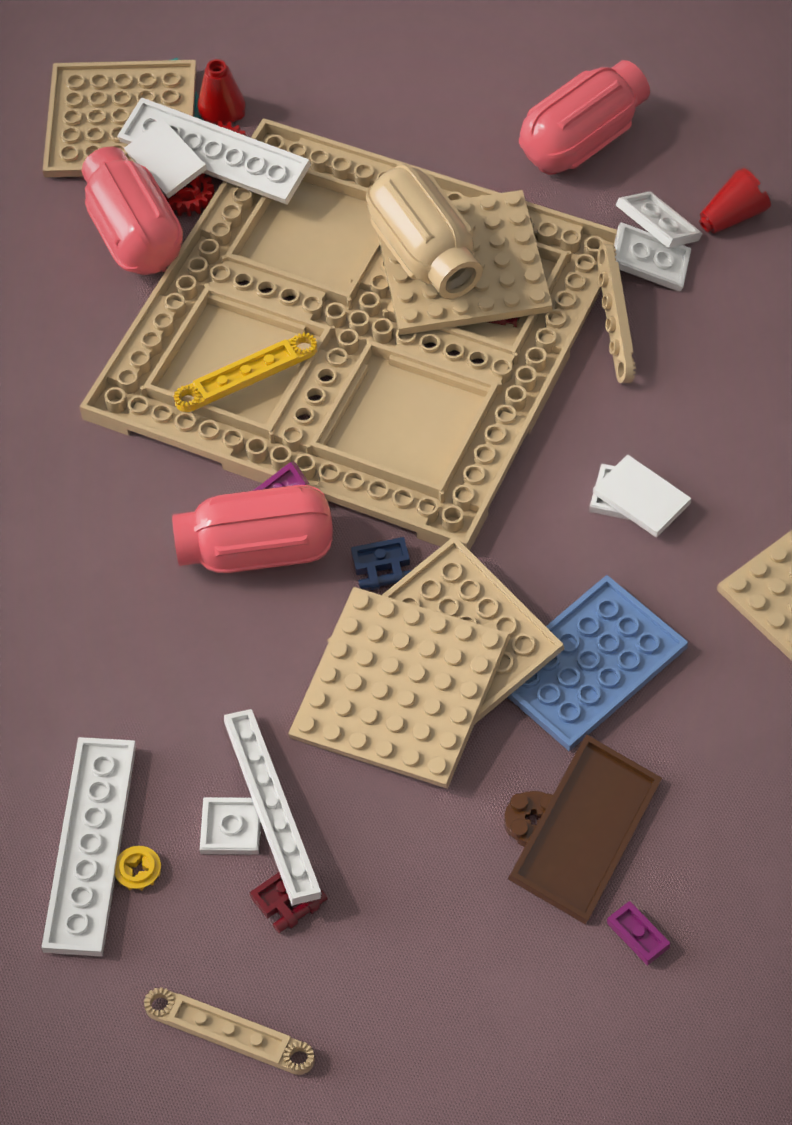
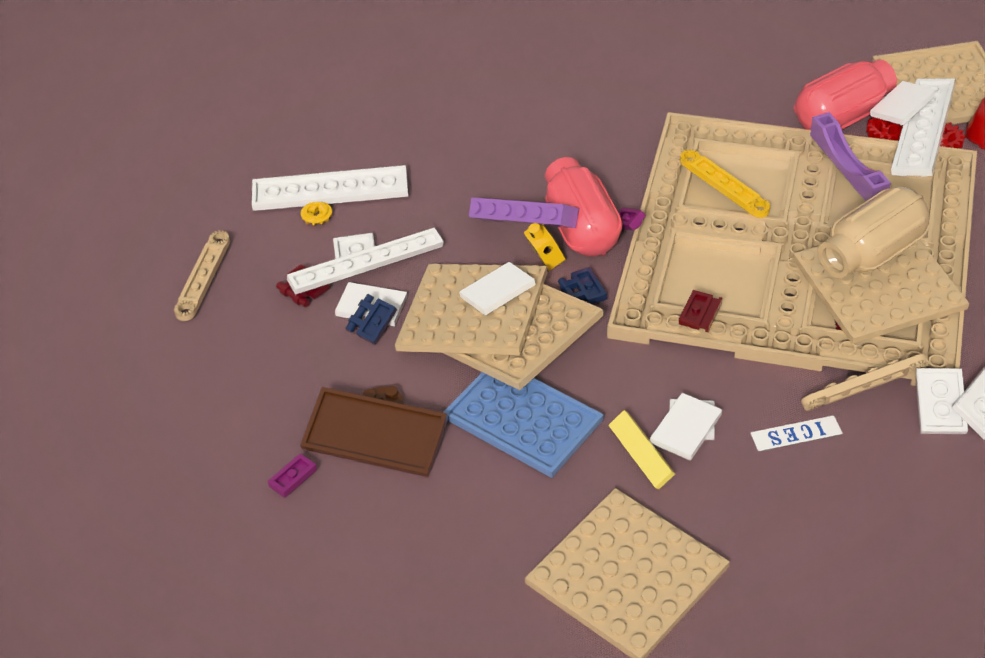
camera: 80 degrees right, 10 degrees down
(287, 560) = (523, 211): none -> medium lavender arch
(301, 589) = (538, 239): none -> yellow torso
(304, 226) = (830, 138): none -> medium lavender arch
(343, 814) = (355, 292): none -> white tile
(389, 805) = (376, 320): none -> dark blue plate
(390, 644) = (497, 288): none -> white tile
(473, 440) = (700, 311): none -> dark red plate
(659, 400) = (796, 433): none -> white sticker
(664, 548) = (641, 449): none -> light yellow tile

